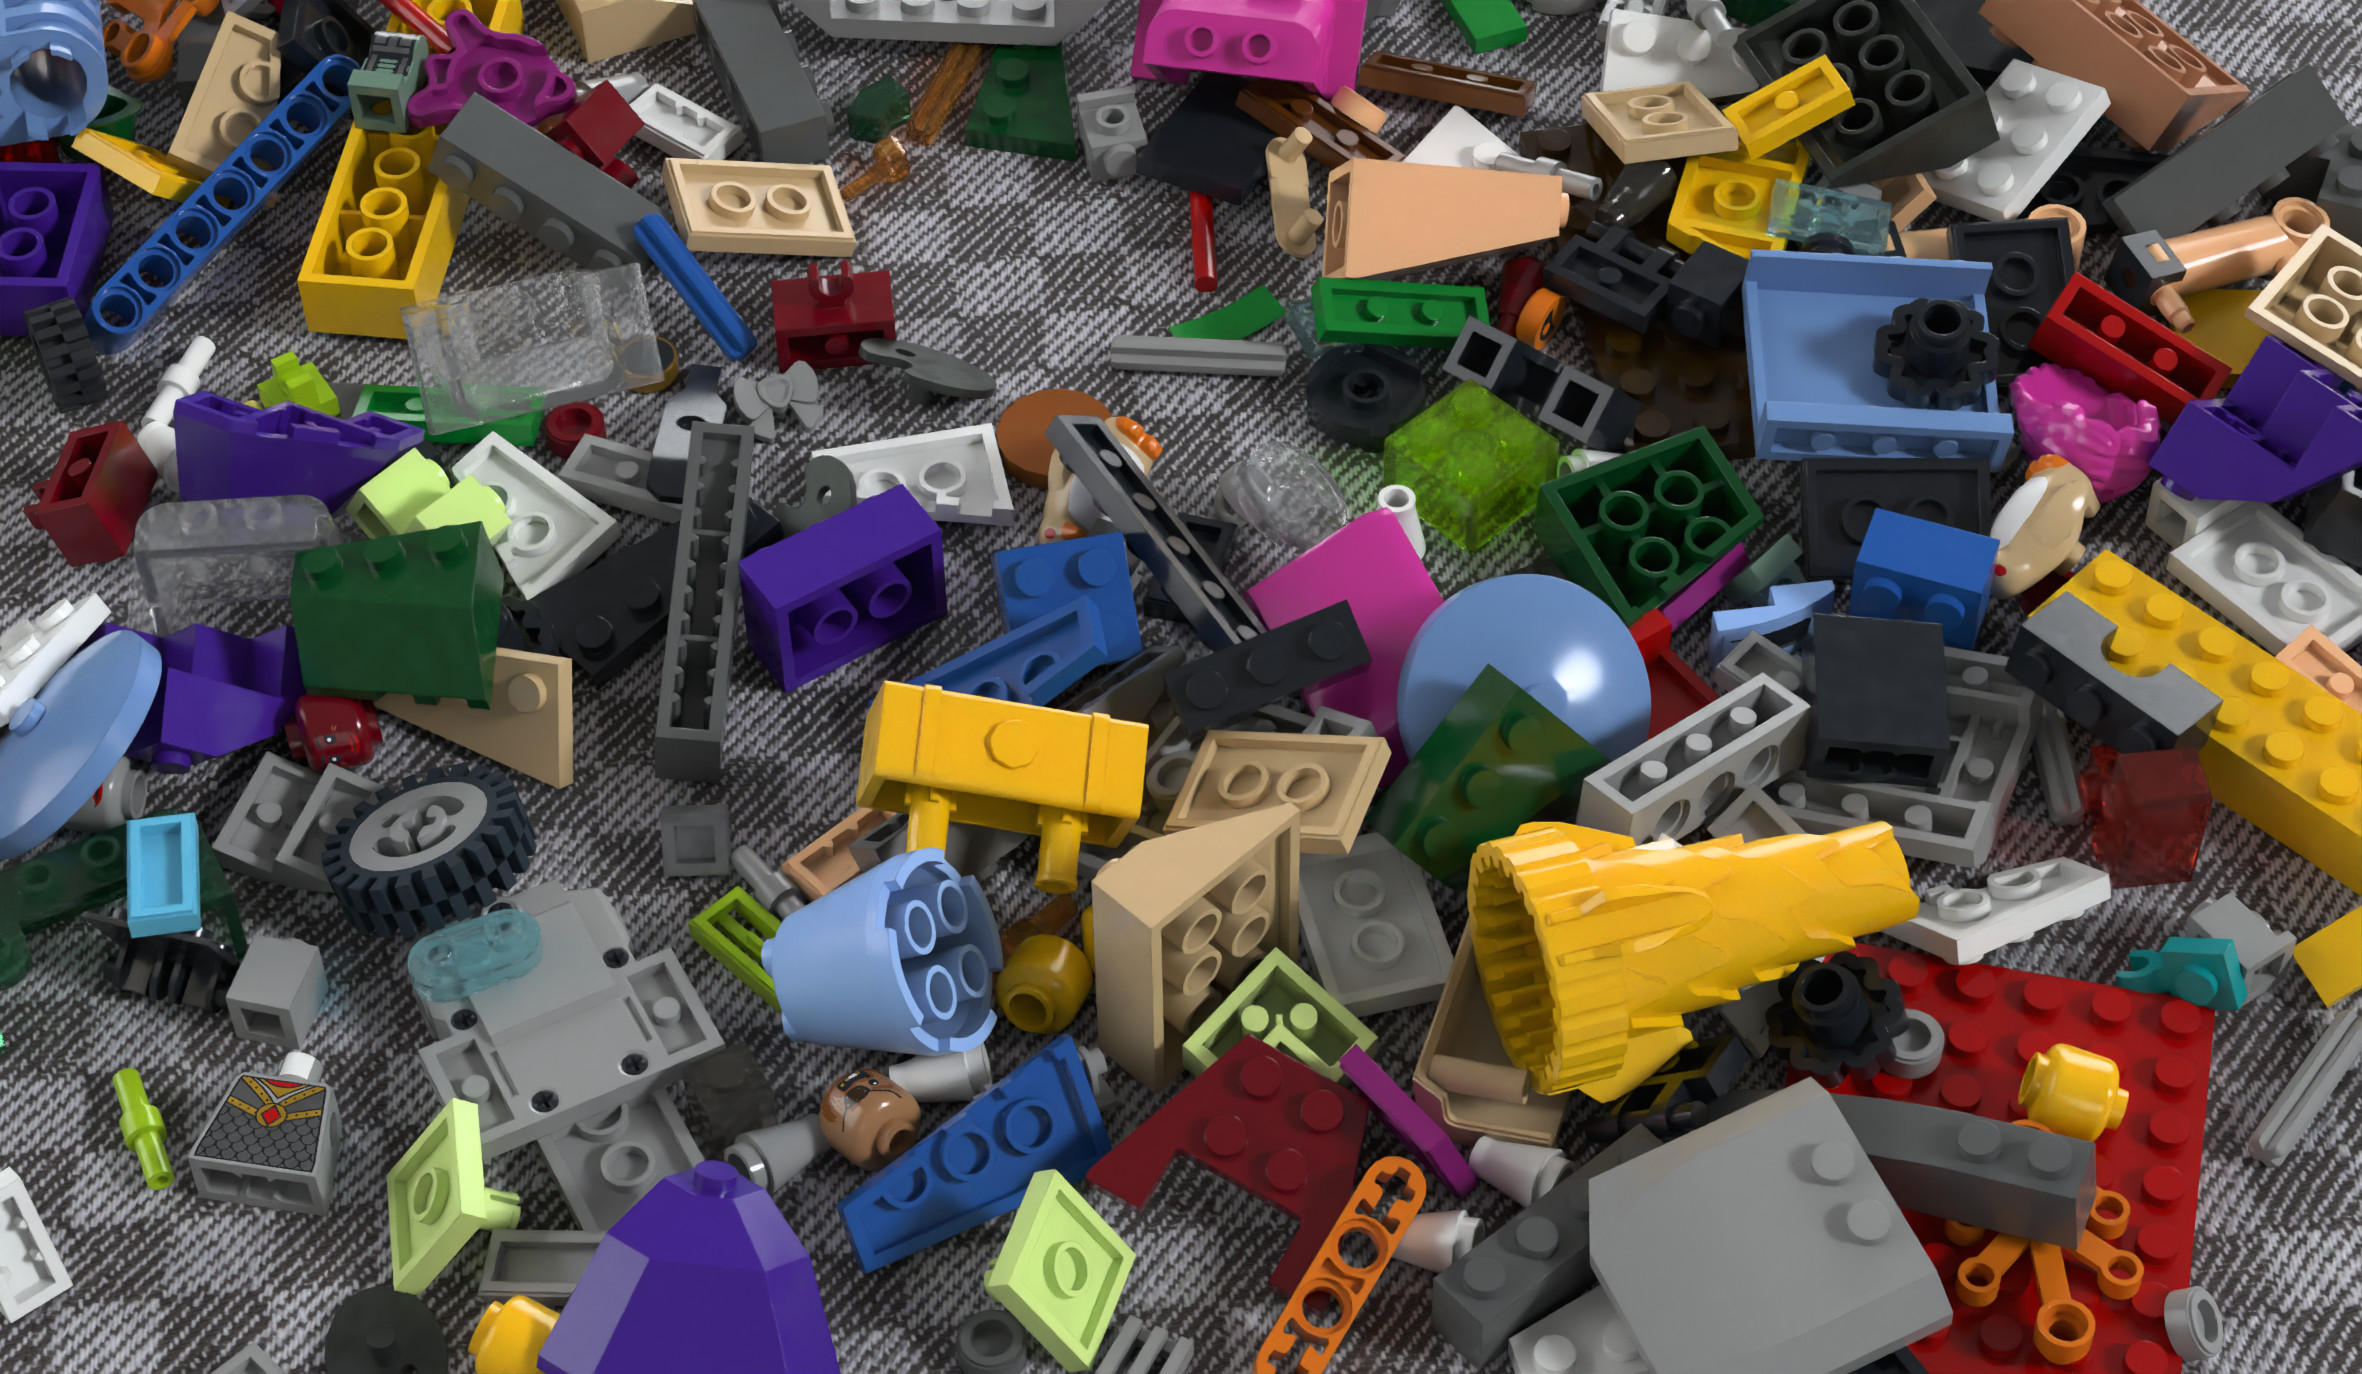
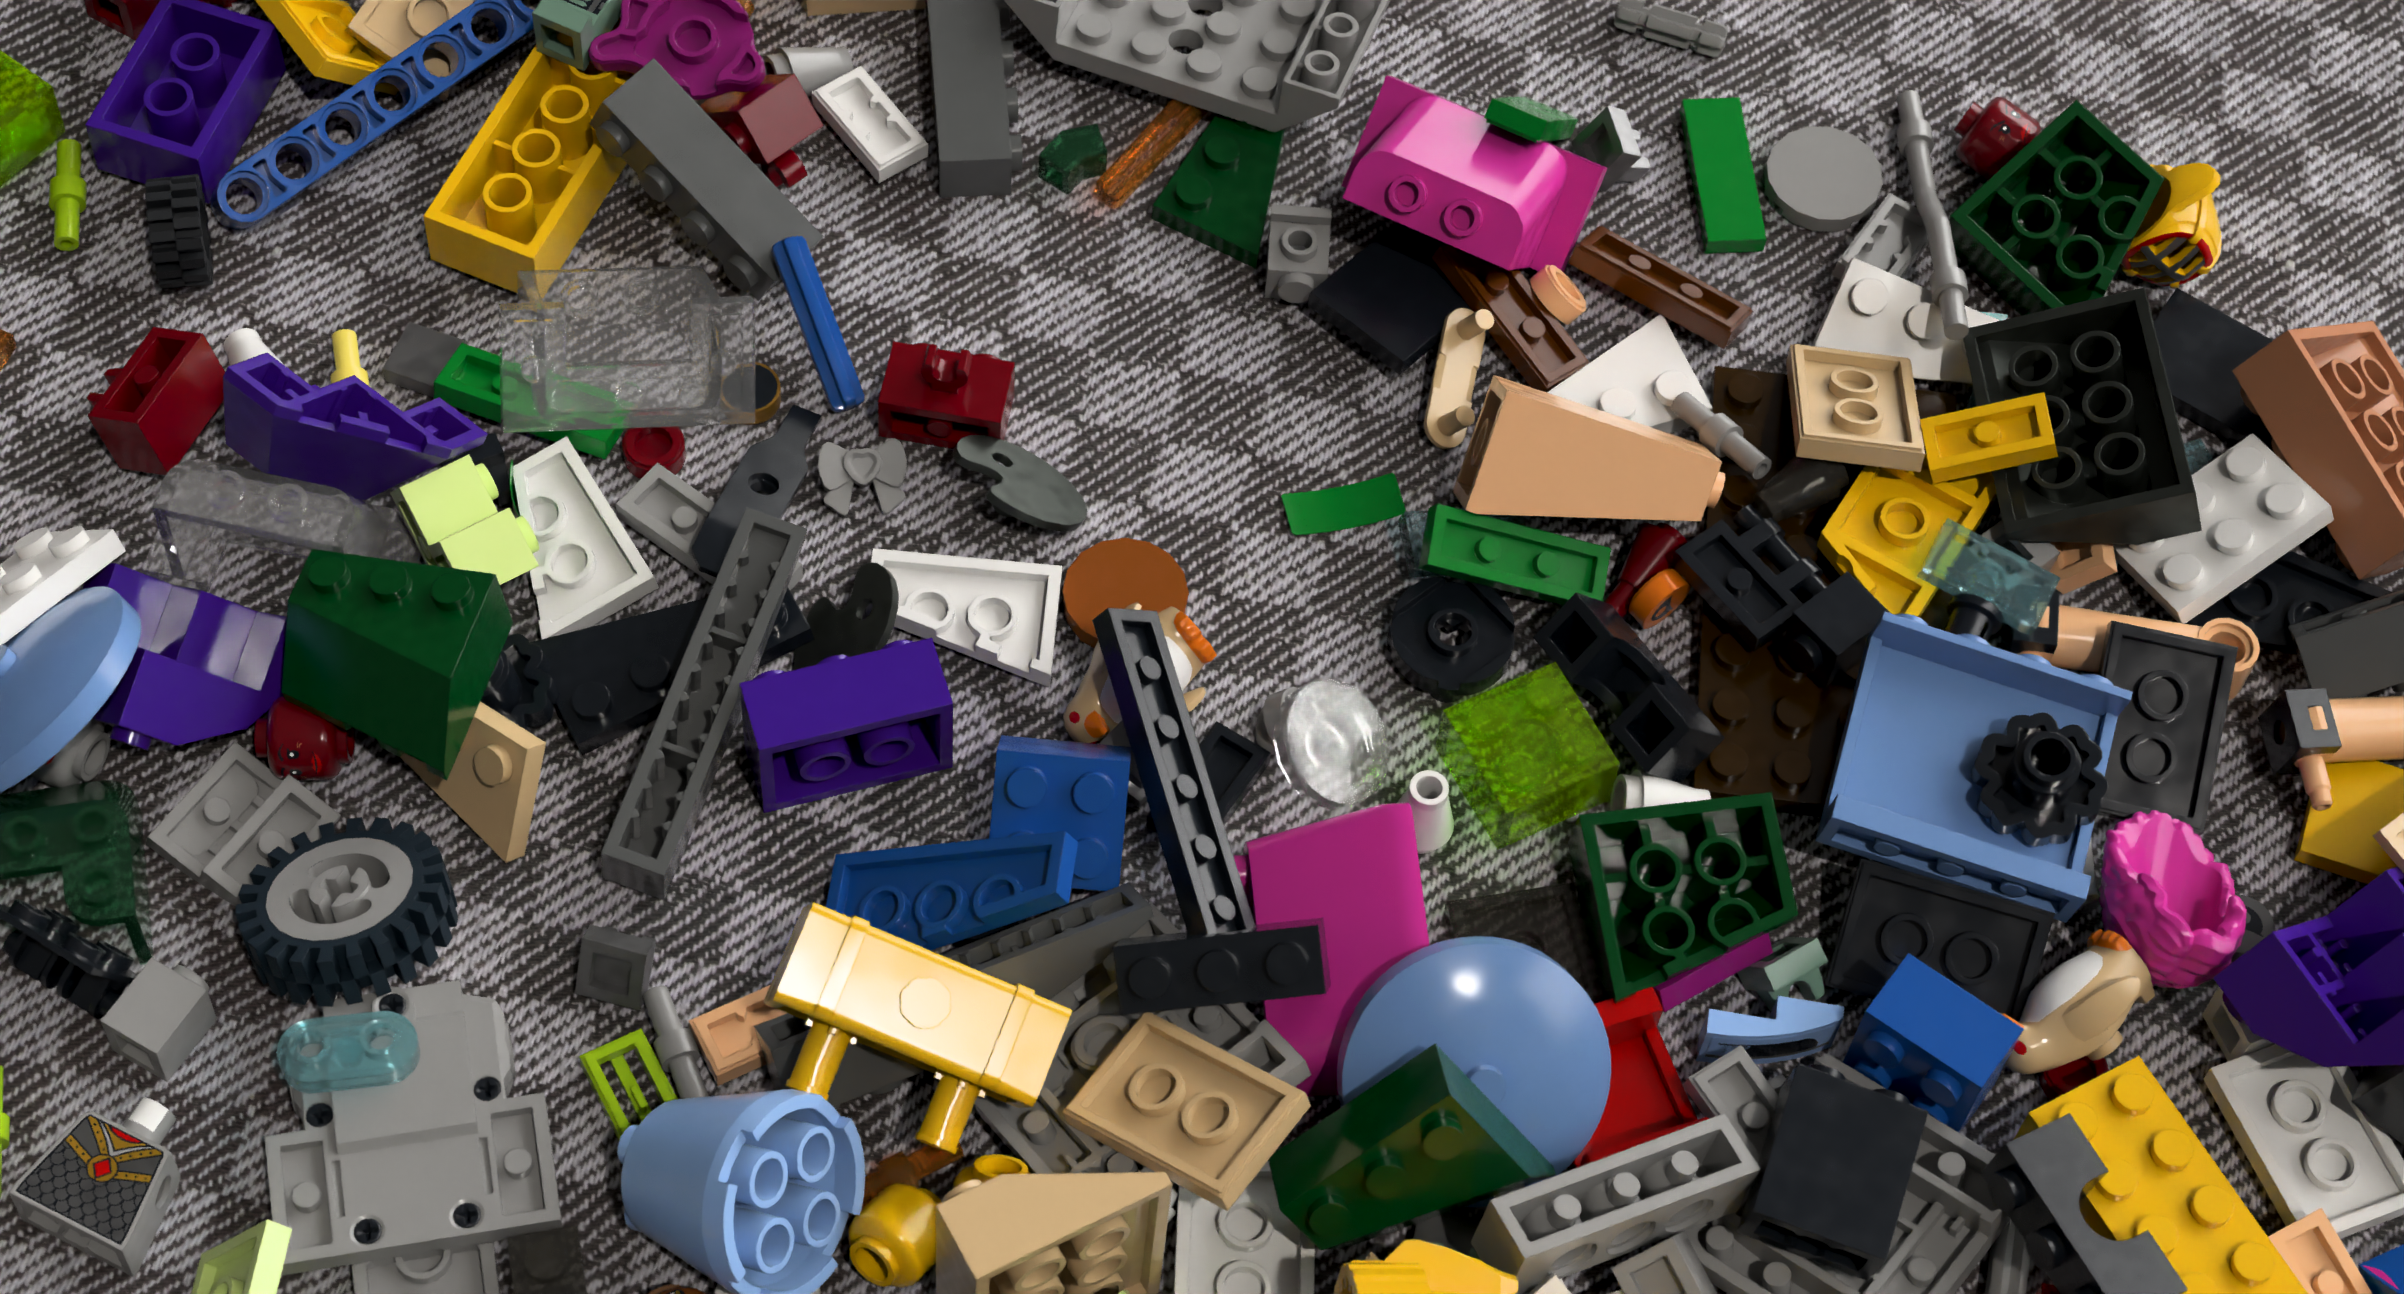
camera: 10 degrees right, 10 degrees up
(163, 875) = (69, 884): medium azure tile -> none
(180, 380) = (285, 286): white bar -> none
(298, 385) = (390, 340): lime tile -> none
(758, 207) = (912, 245): tan tile -> none
(891, 164) = (1067, 226): clear orange hand -> none
(1198, 355) = (1299, 540): light grey axle -> none
(1203, 242) = (1350, 405): red bar -> none
(2126, 350) = (2247, 829): red brick -> none

